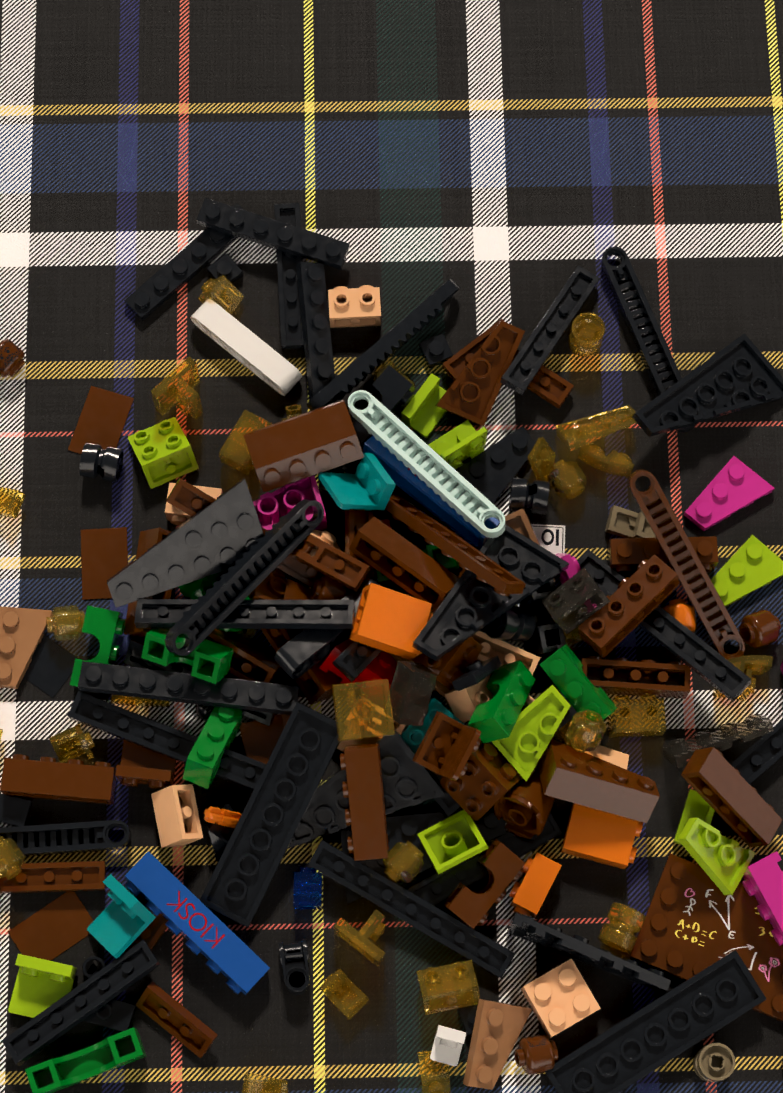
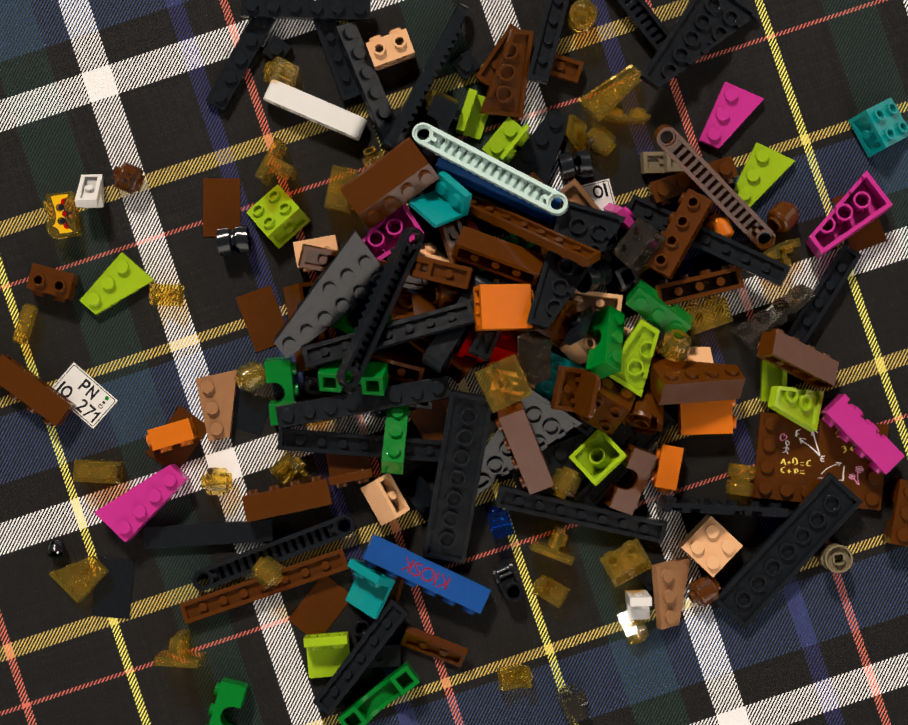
camera: 15 degrees left, 15 degrees up
(221, 816) = (420, 490): orange axle -> none

